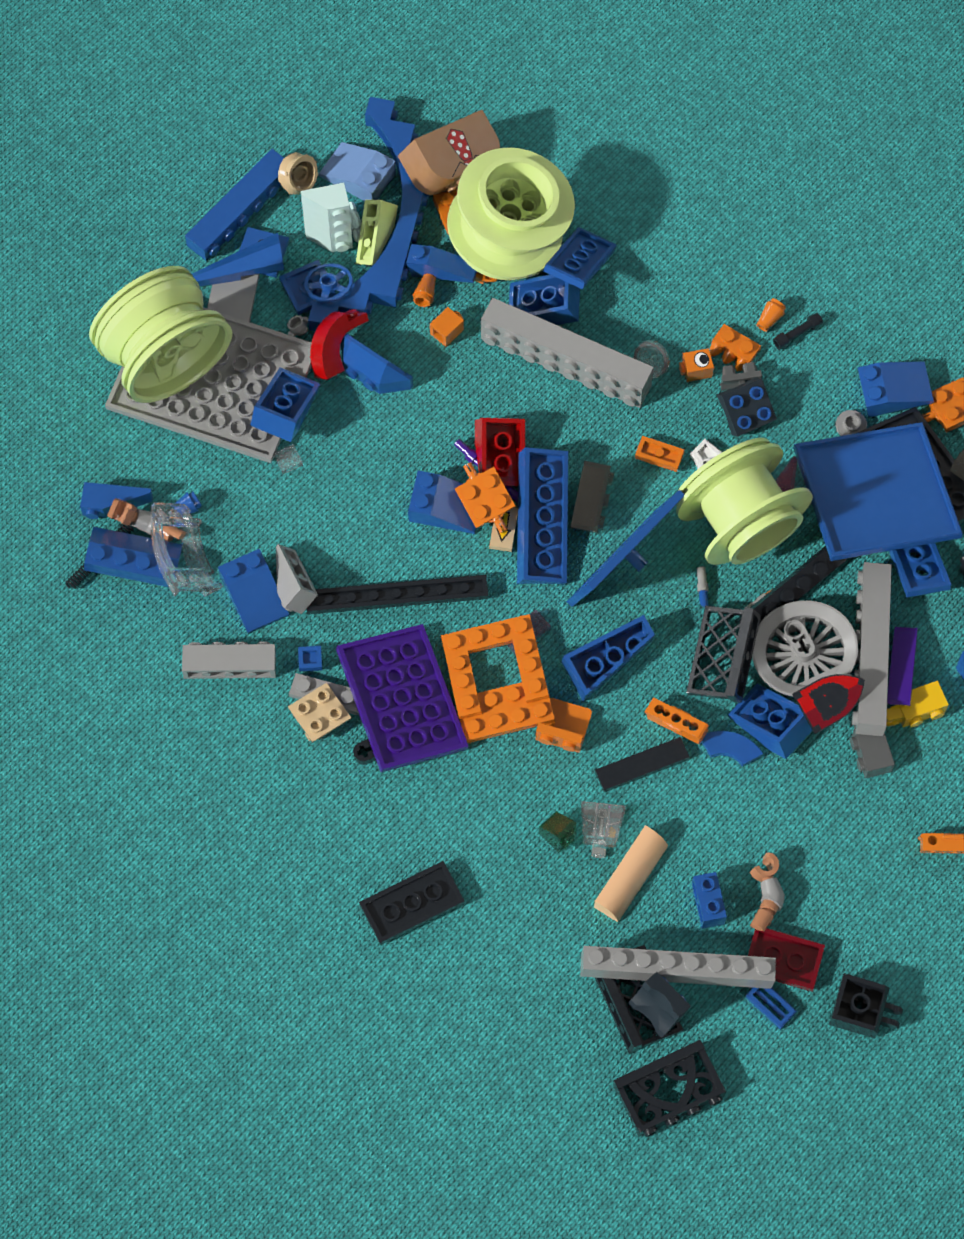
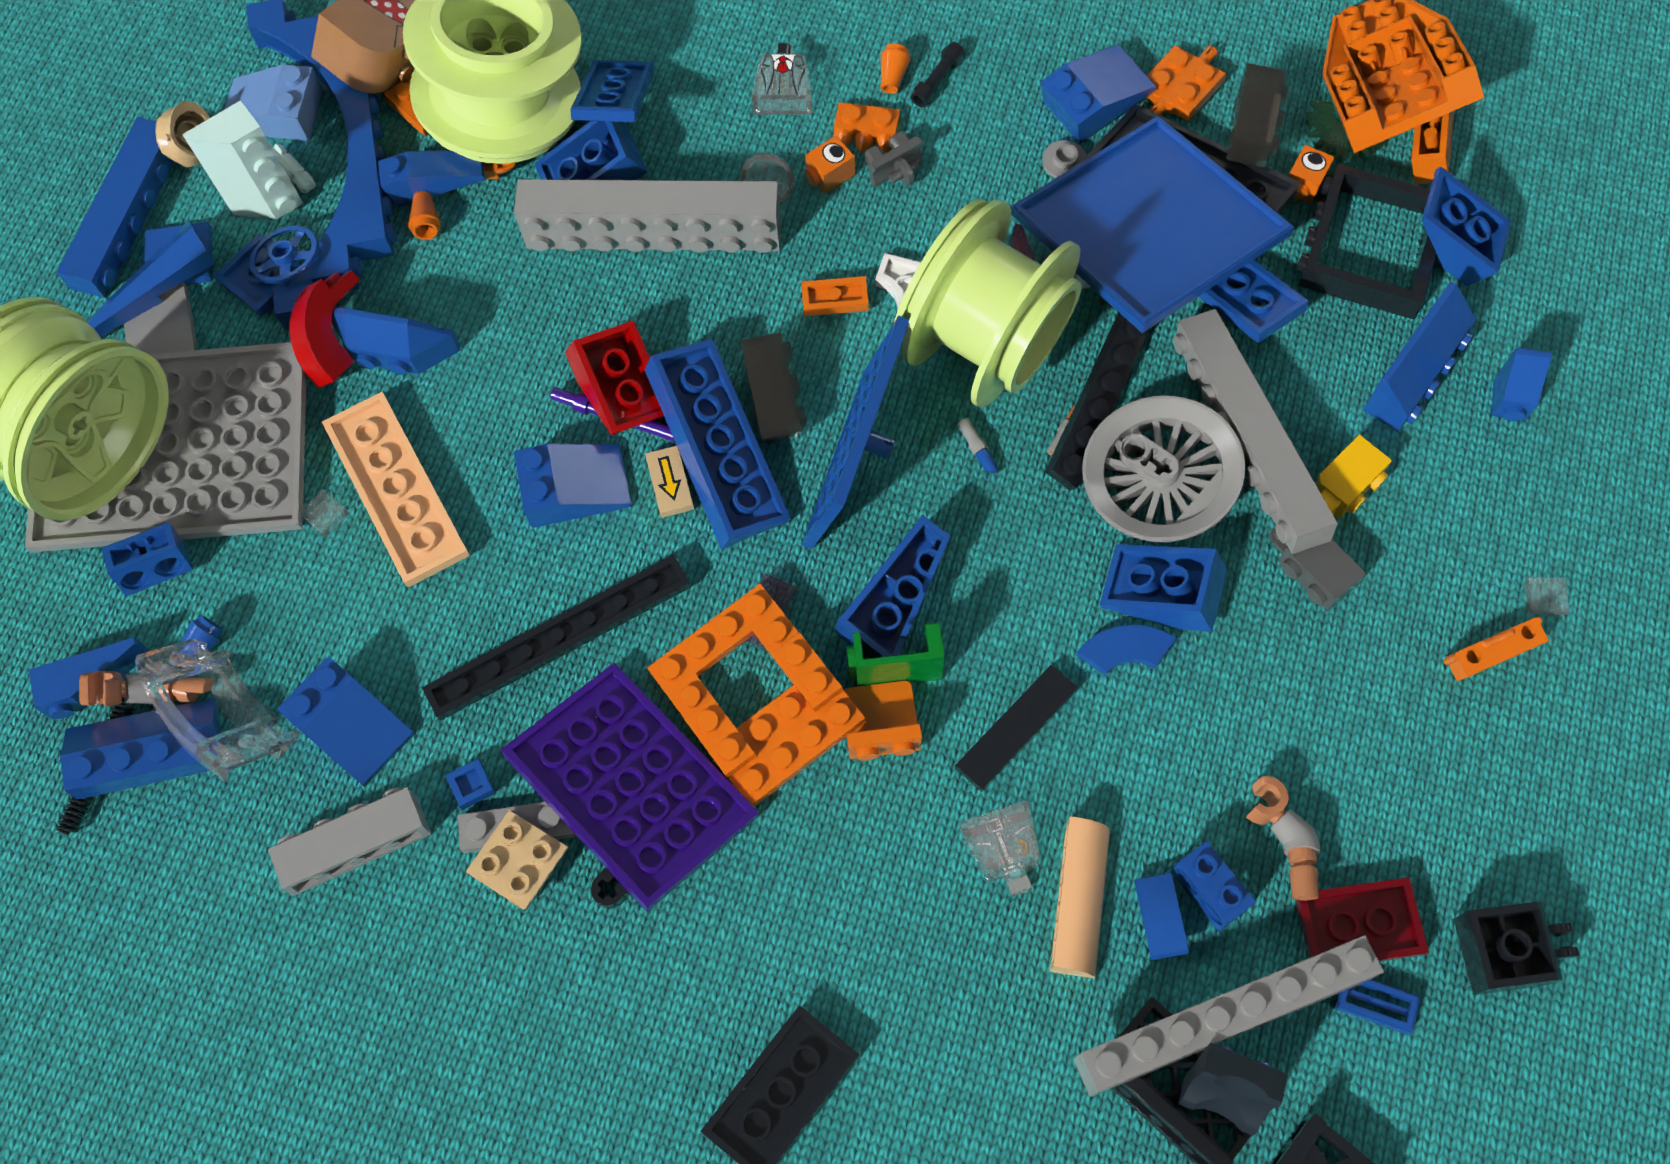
camera: 20 degrees left, 0 degrees up
(175, 443) = (147, 559): none -> blue brick
(284, 404) = (284, 440): blue slope -> none
(293, 581) = (398, 682): light grey slope -> none
(297, 325) = (265, 329): light grey plate -> none
(336, 462) = (395, 489): none -> light nougat plate
(376, 228) = (322, 162): yellowish green slope -> none
(447, 326) = (473, 248): orange brick -> none
(485, 497) = (625, 448): orange plate -> none
(558, 831) = (949, 881): clear green slope -> none
(596, 702) = (908, 667): none -> green panel
(671, 904) = (1161, 916): none -> blue slope
(672, 714) = (1032, 633): orange piece -> none
(692, 295) = (782, 83): none -> clear torso
(740, 660) = (1083, 516): black fence -> none
(747, 406) = (922, 188): black brick -> none
(829, 699) = (1240, 521): shield -> none
(902, 666) = (1305, 435): dark purple tile -> none

